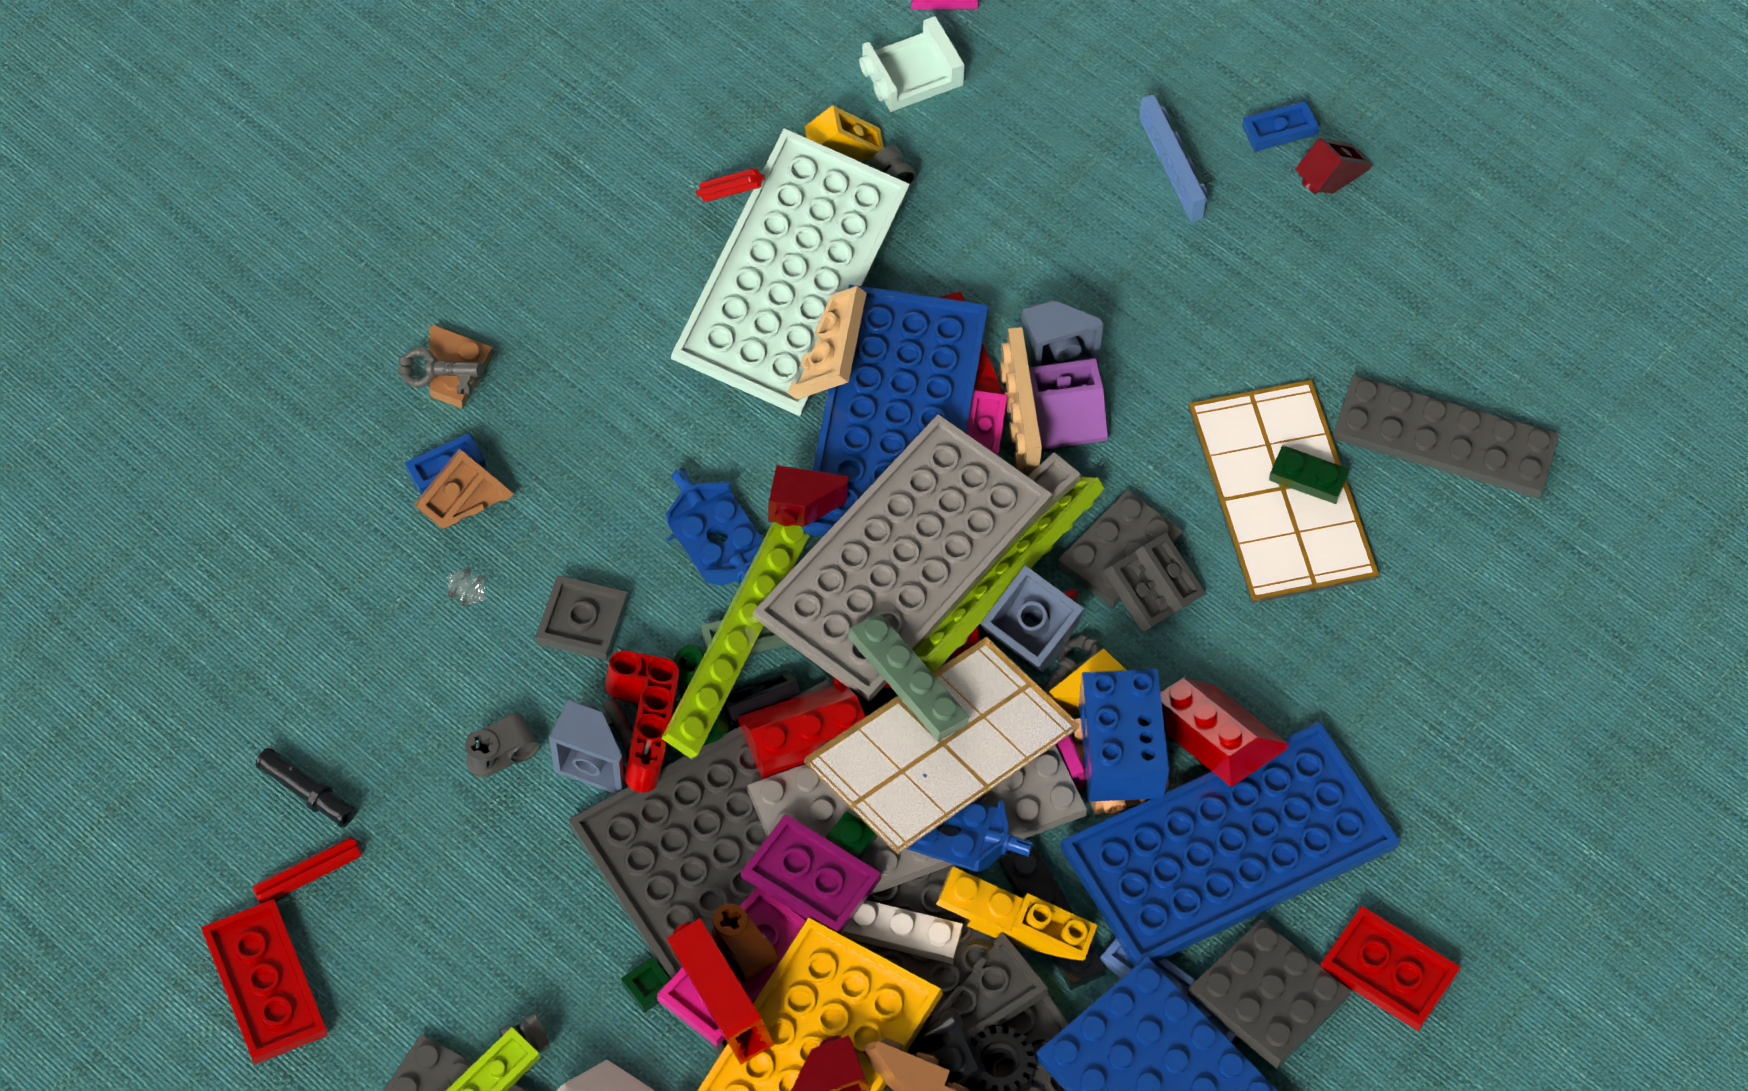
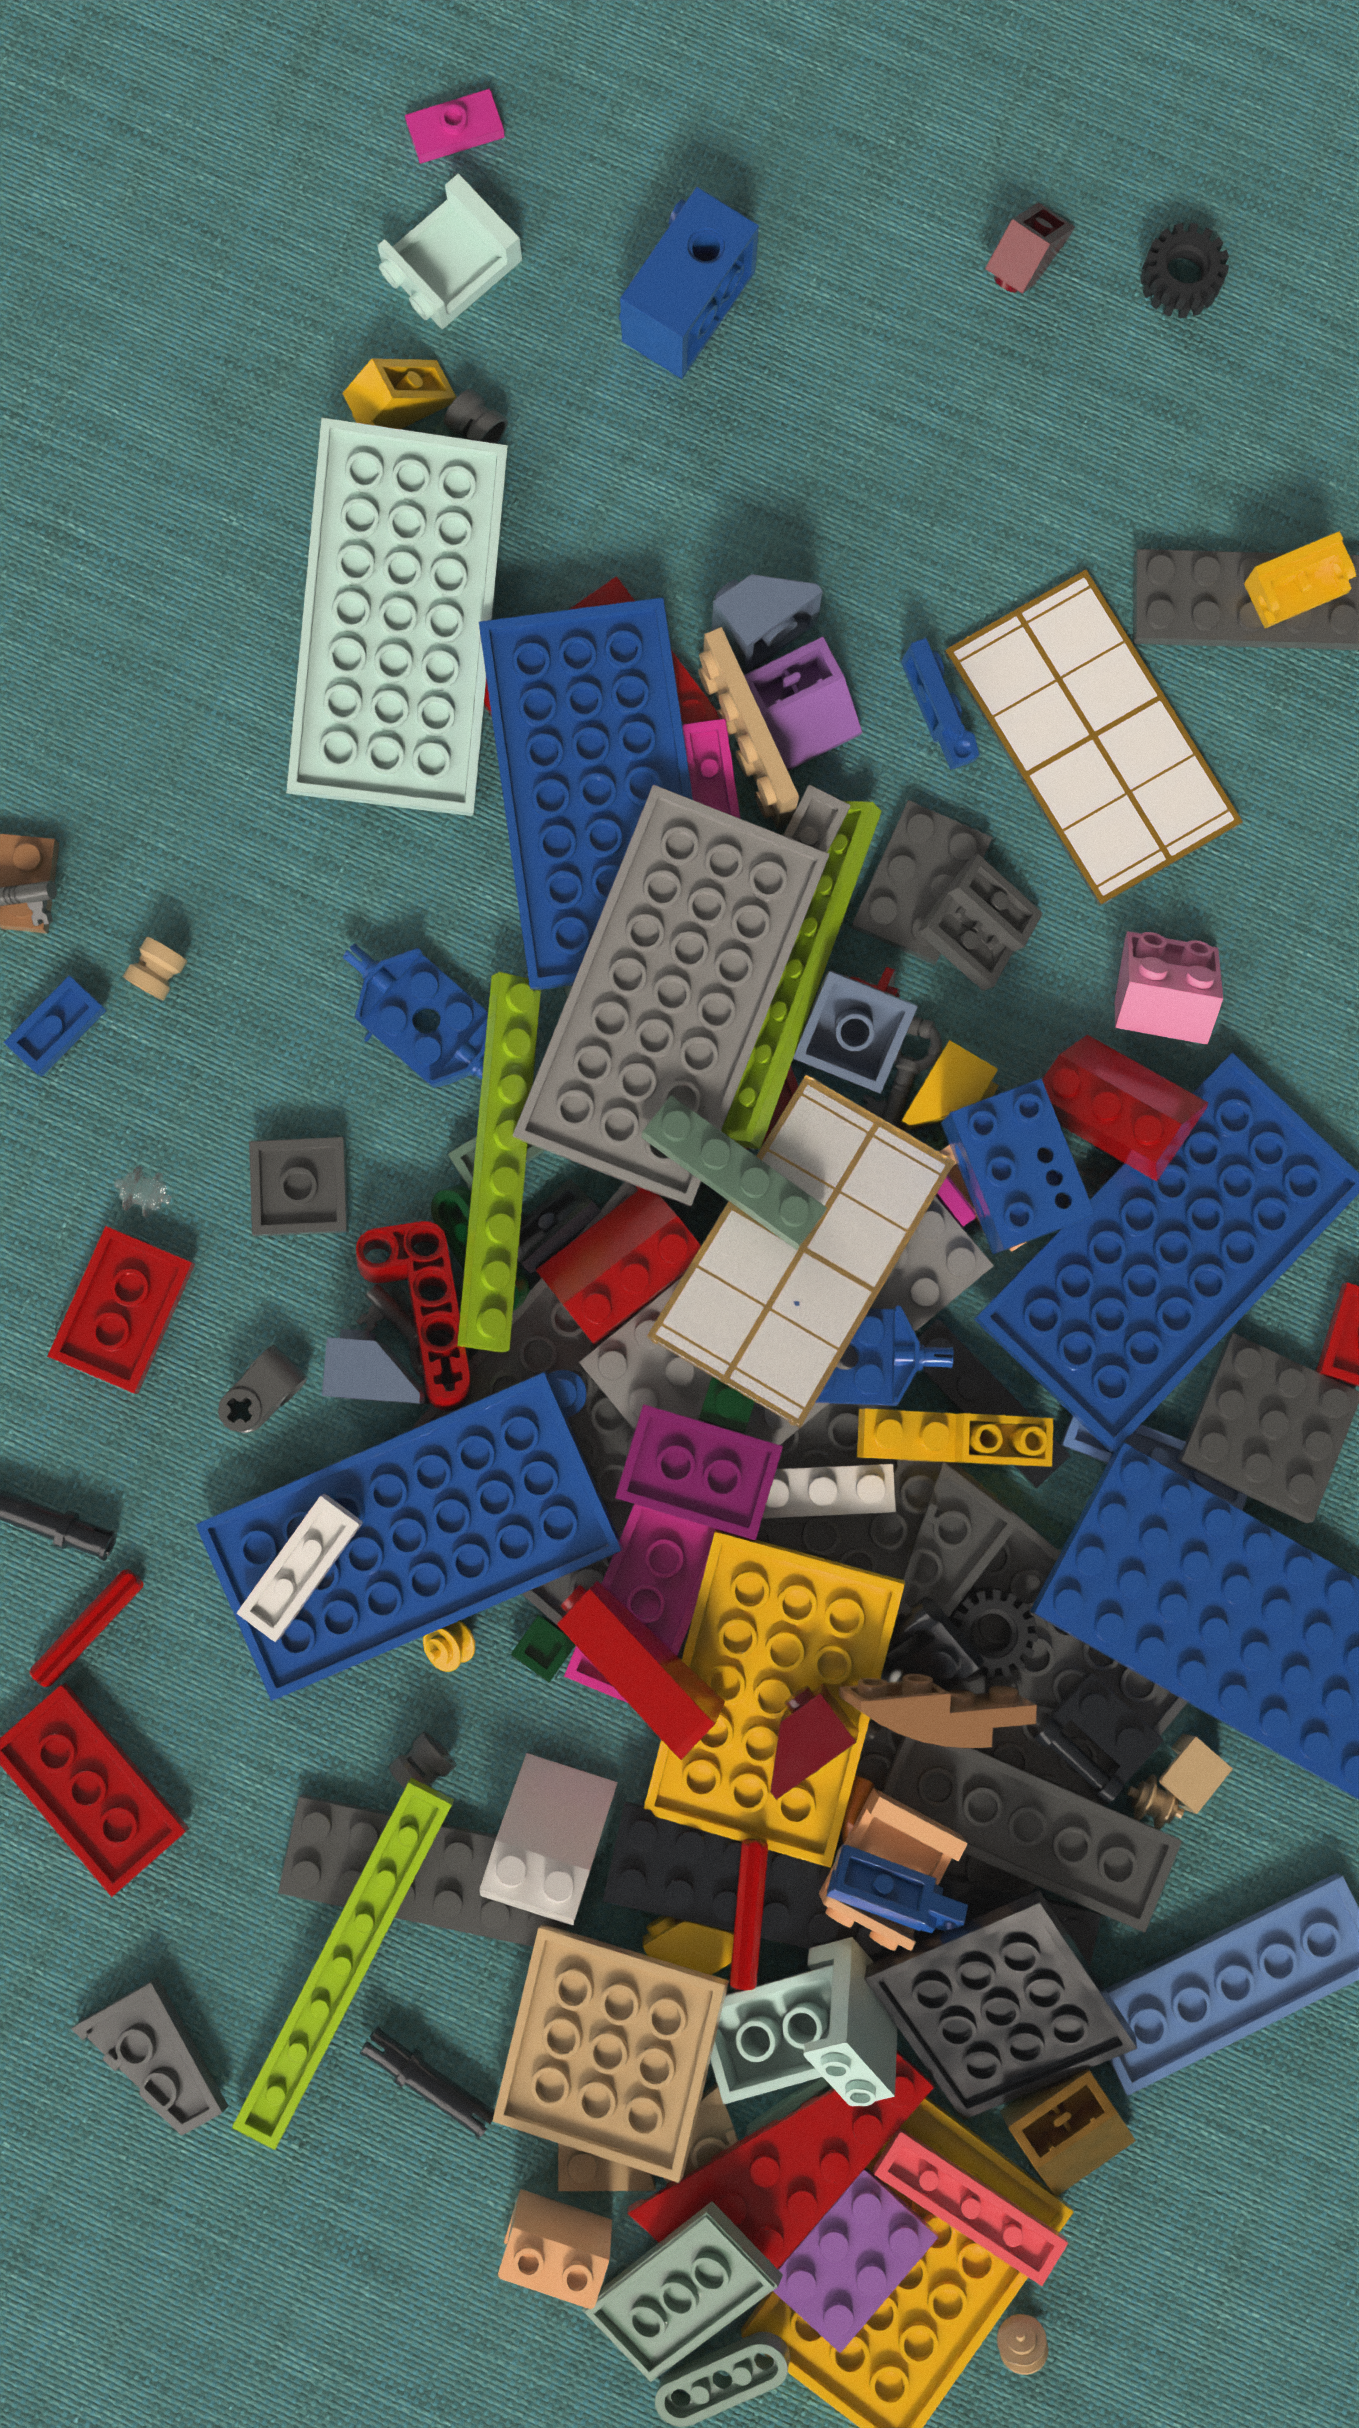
camera: 20 degrees left, 25 degrees up
(419, 662) = (121, 1310): none -> red plate
(460, 491) = (87, 1062): medium nougat wing -> none
(486, 859) = (299, 1567): none -> white plate
(532, 446) = (155, 968): none -> tan wheel
(573, 867) = (447, 1530): none -> blue plate
(576, 958) = (449, 1646): none -> yellow wheel
(727, 804) = (569, 1390): none -> blue plate
(730, 185) = (278, 517): red axle -> none
(744, 947) = (653, 1595): reddish brown piece -> none
(804, 495) = (521, 954): dark red slope -> none
(834, 351) = (491, 728): tan wing -> none
(1075, 122) = (688, 282): none -> blue piece
(1169, 151) = (815, 283): medium blue plate -> none
(1170, 435) = (938, 706): none -> blue hinge
(1280, 126) = (945, 205): blue plate -> none
(1284, 665) = (1168, 987): none -> bright pink slope
(1309, 474) = (1123, 709): dark green plate -> none
(1443, 194) = (1188, 246): none -> black tyre
(1465, 419) = (1300, 580): none -> yellow hinge

